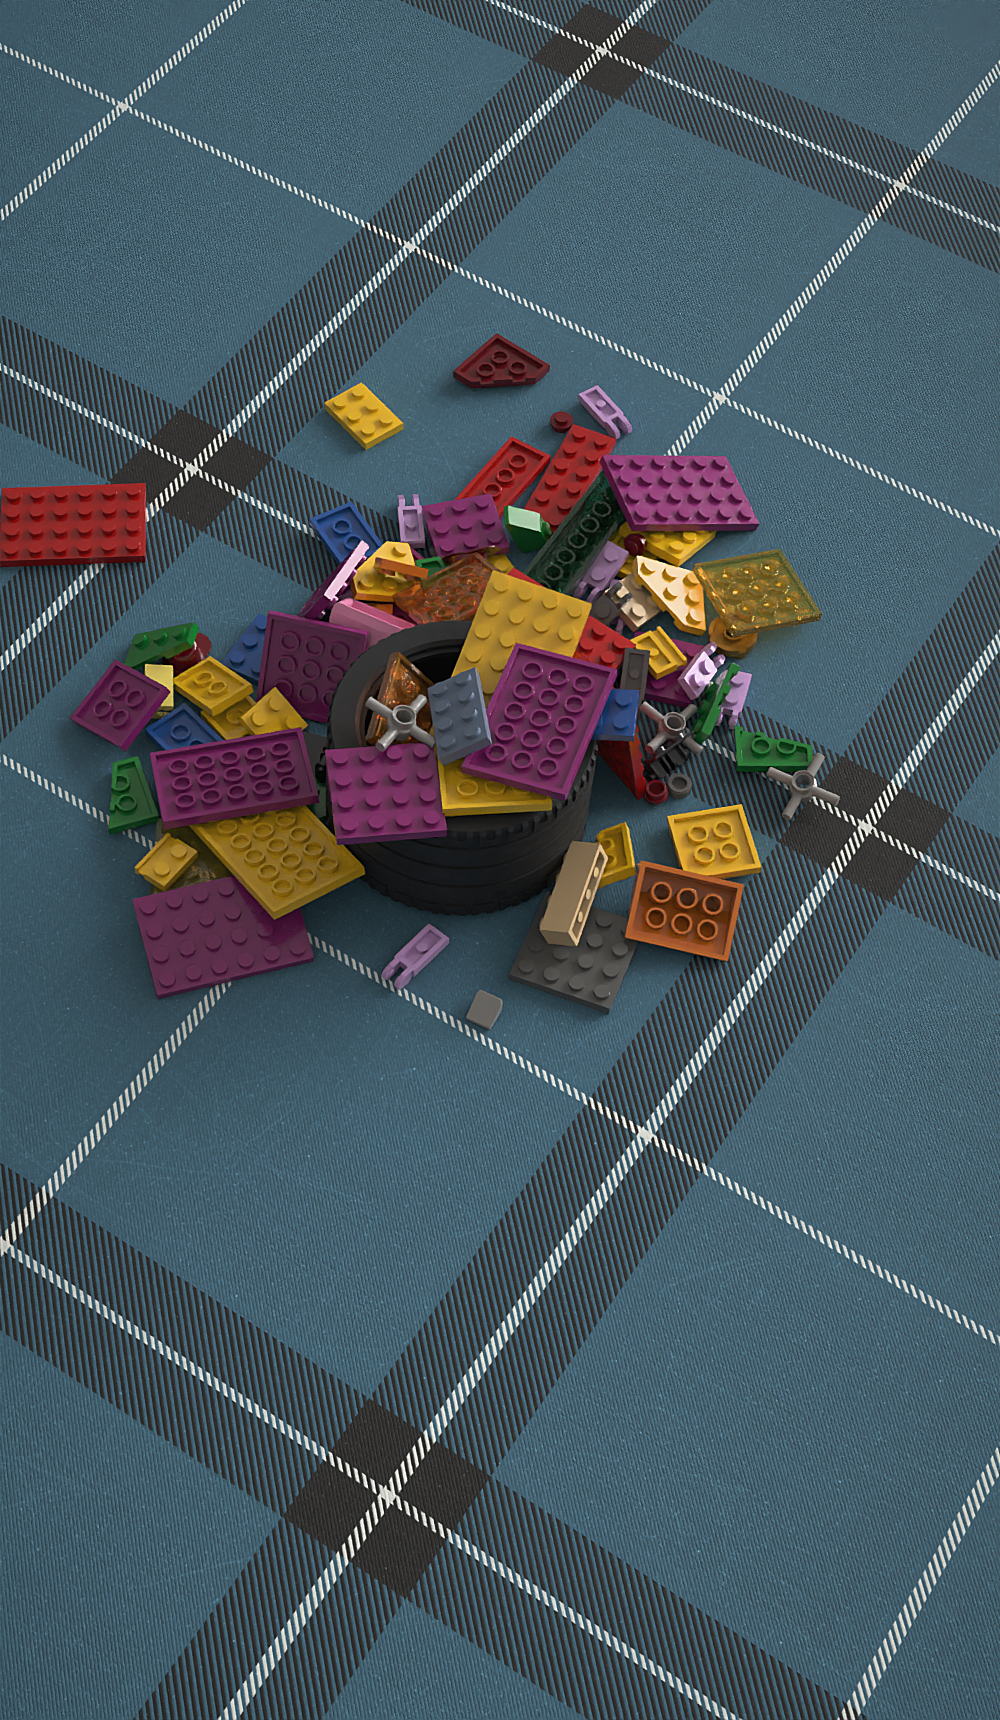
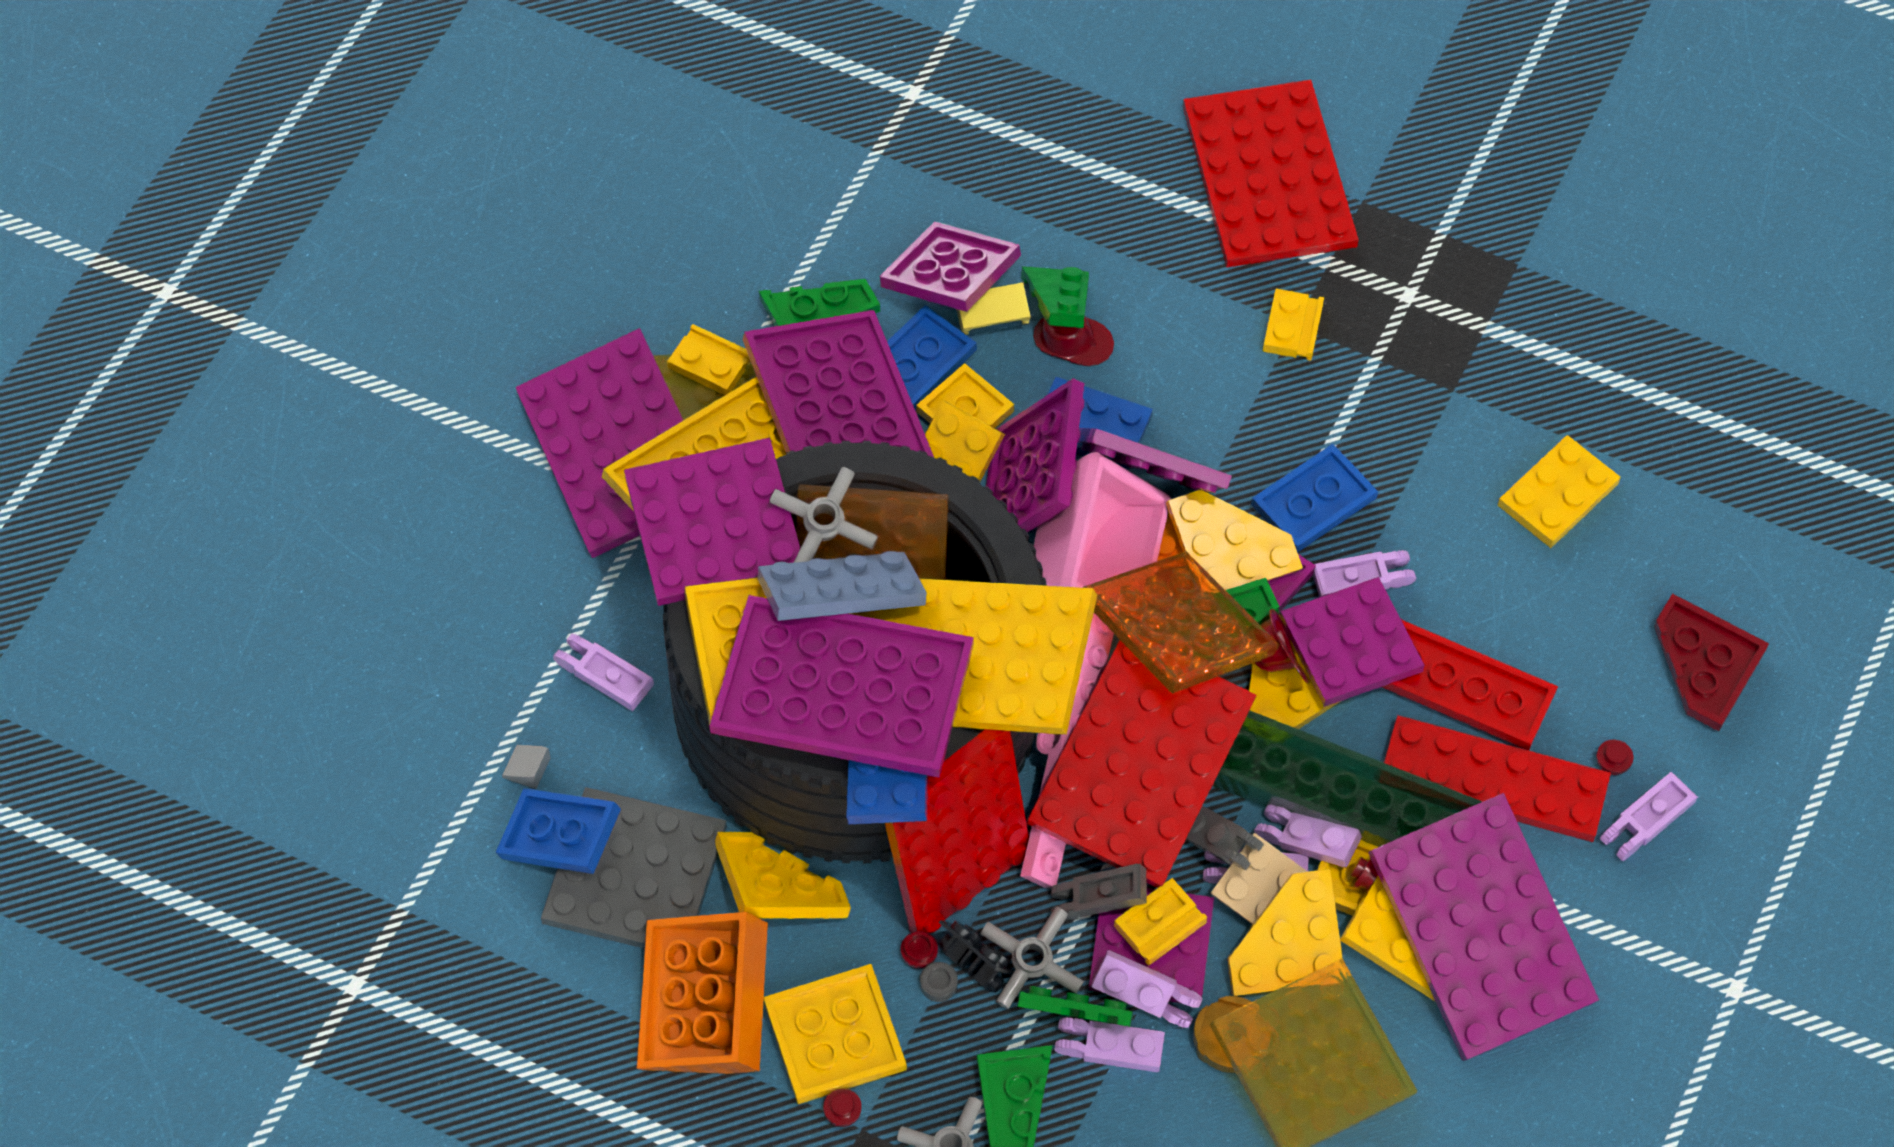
camera: 85 degrees right, 5 degrees up
(204, 530) = (1293, 324): none -> yellow plate
(212, 686) = (1004, 367): yellow plate -> none
(410, 572) = (1225, 549): orange plate -> none
(526, 528) = (1365, 716): green slope -> none
(548, 986) = (558, 830): none -> blue plate
(573, 893) = (698, 839): tan brick -> none
(766, 846) = (842, 1107): none -> dark red plate

